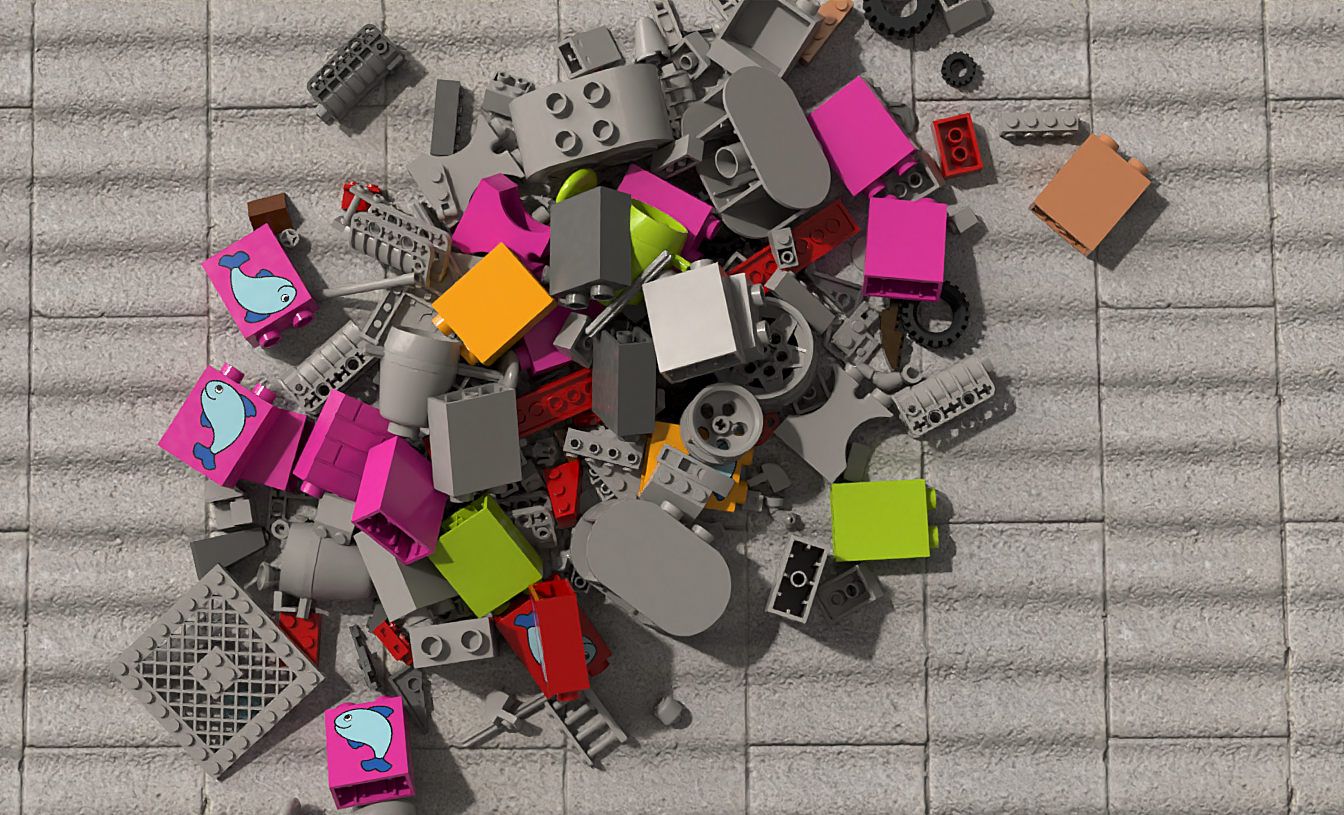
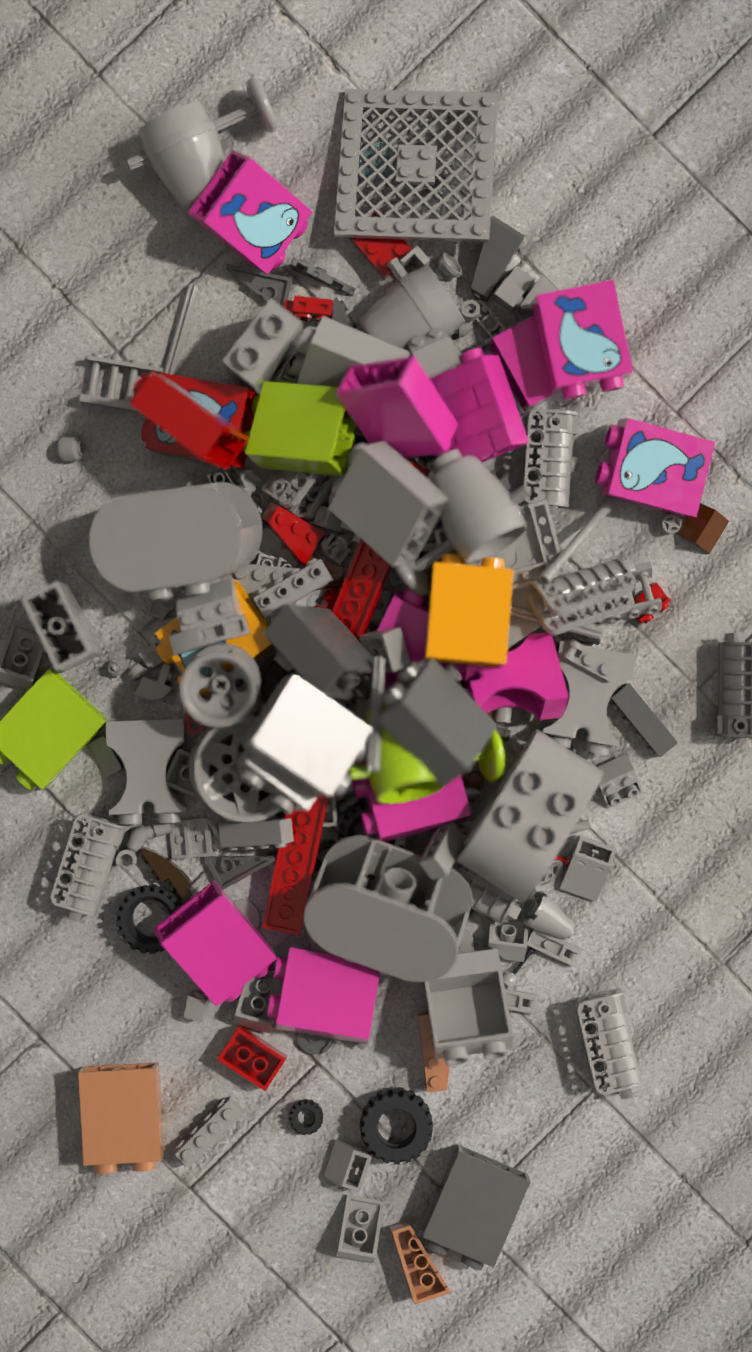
camera: 130 degrees right, 5 degrees up
(497, 710) = (192, 332): light grey brick -> none
(783, 248) = (302, 858): light grey slope -> none
(854, 327) = (199, 853): light grey plate -> none

